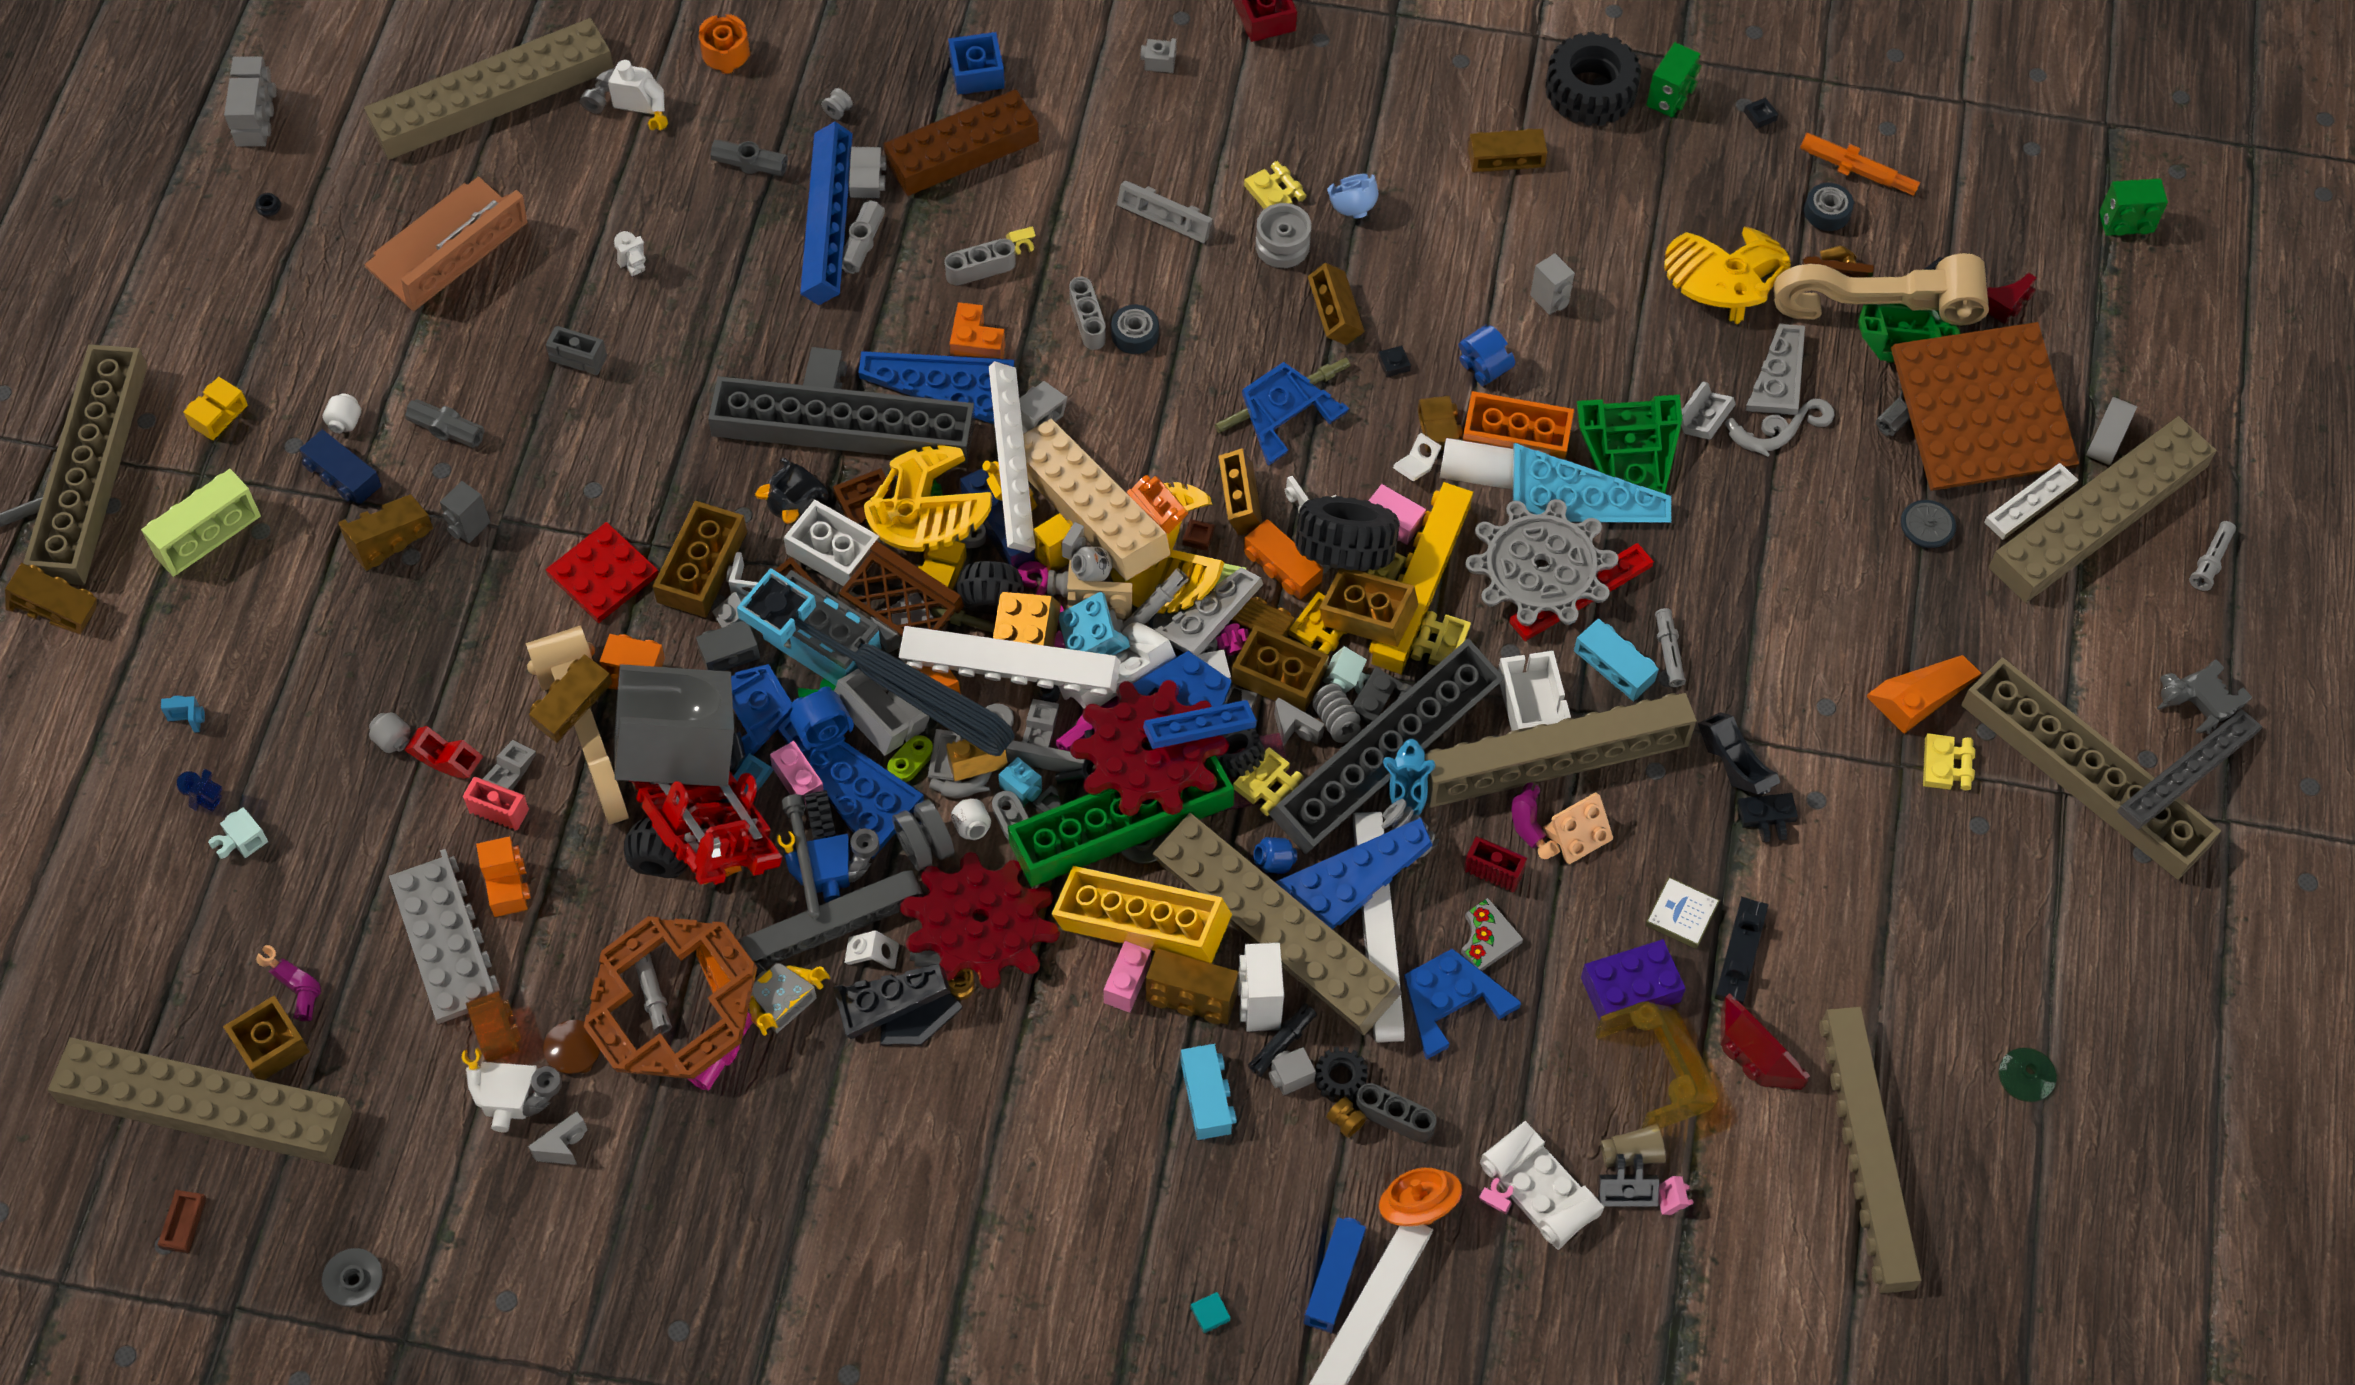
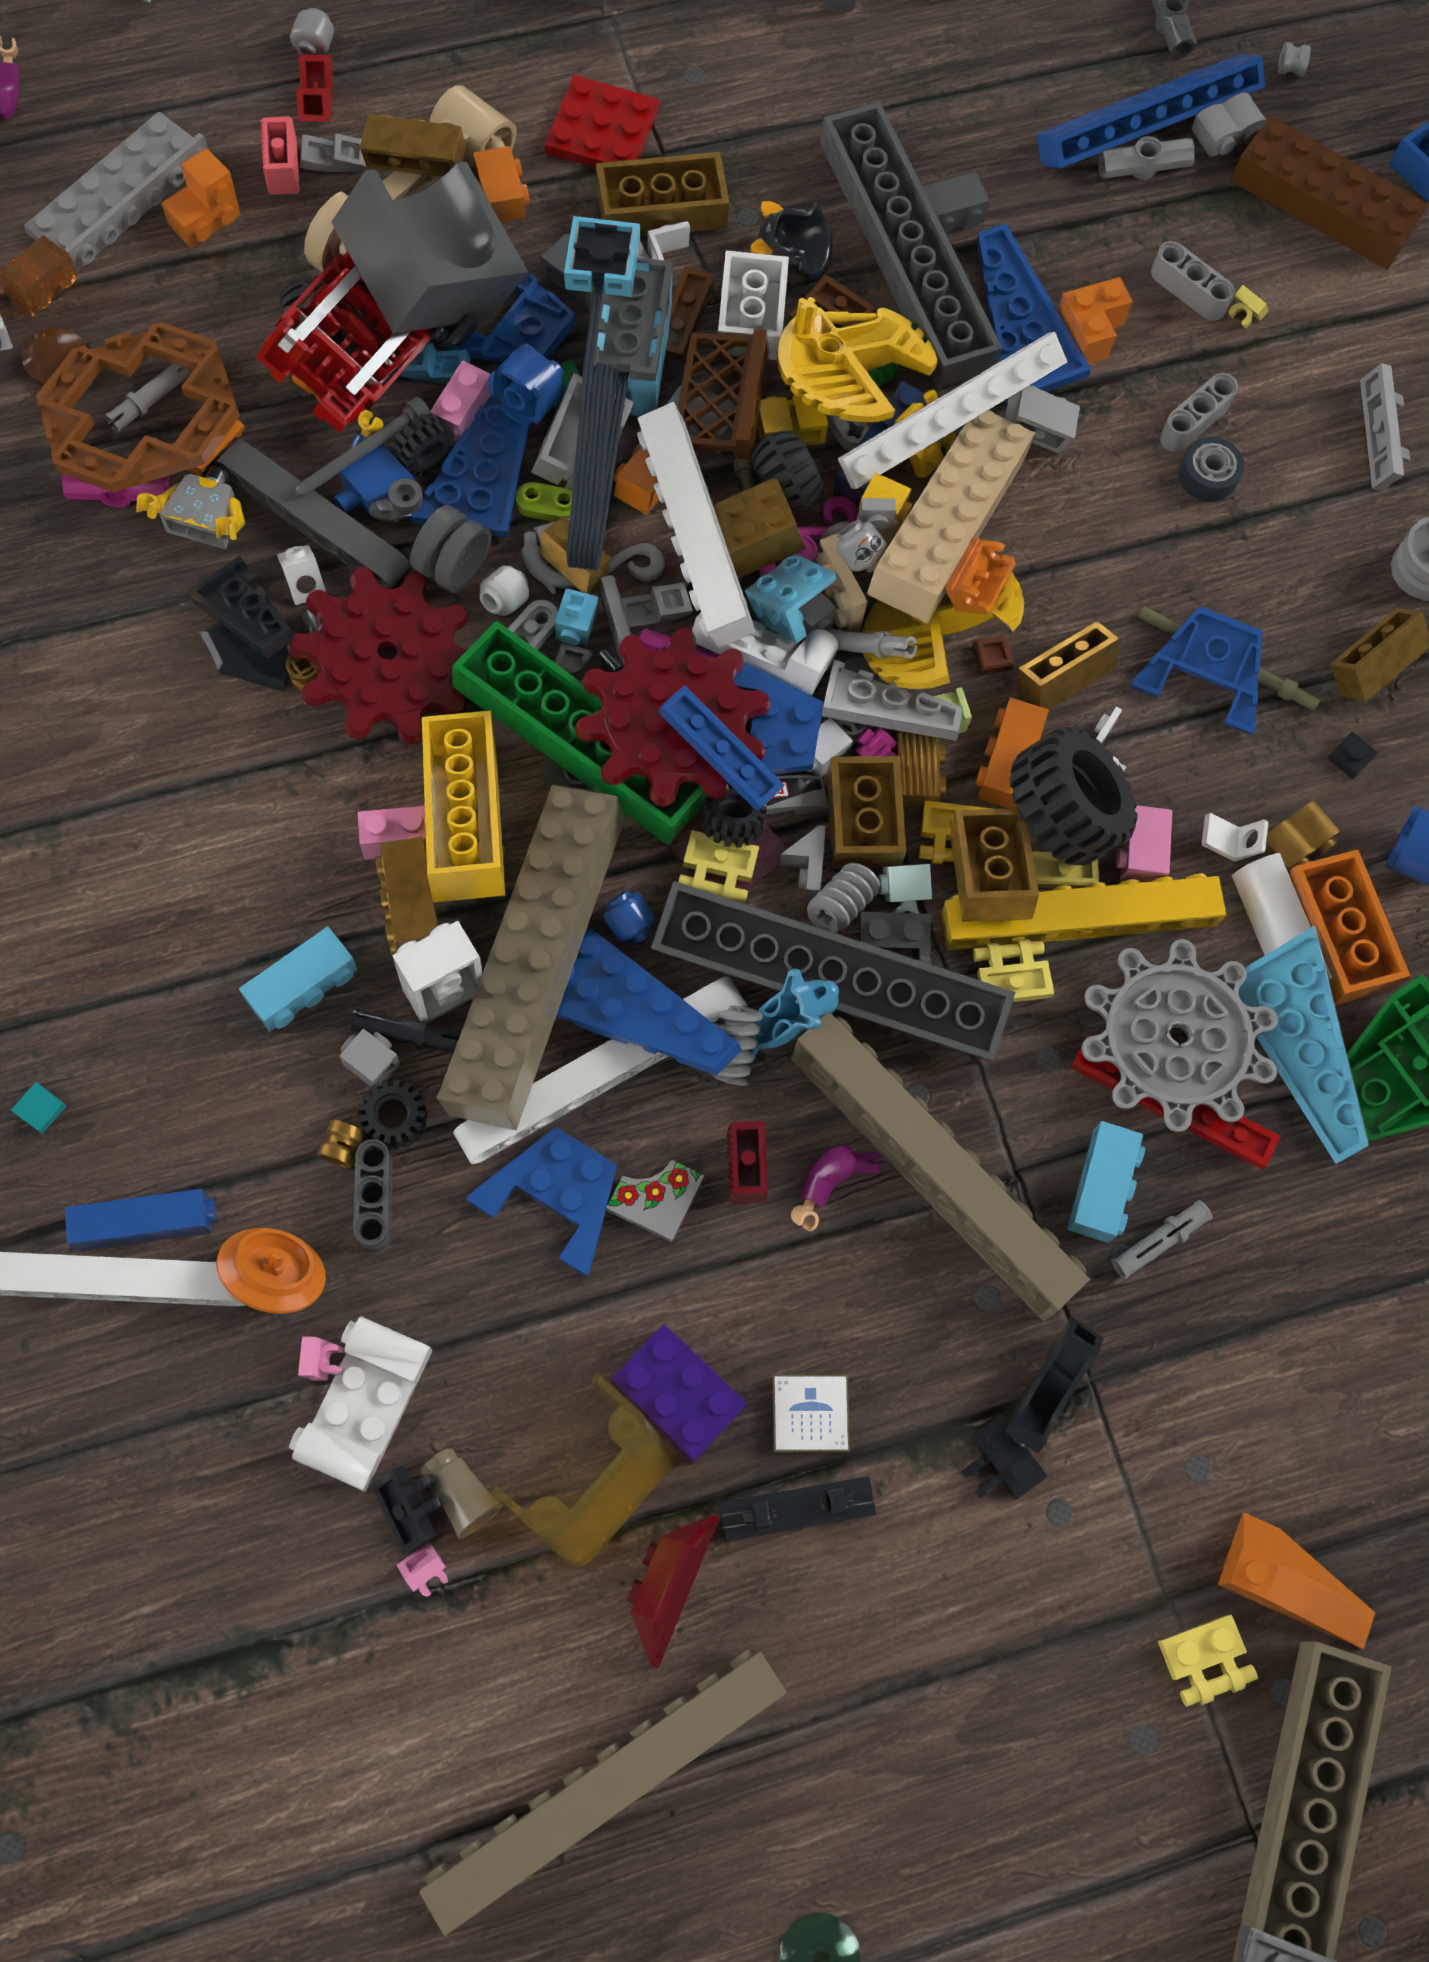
camera: 55 degrees right, 10 degrees up
(1533, 695) = (996, 1104): white piece -> none
(1580, 828) = (850, 1241): light nougat bracket -> none

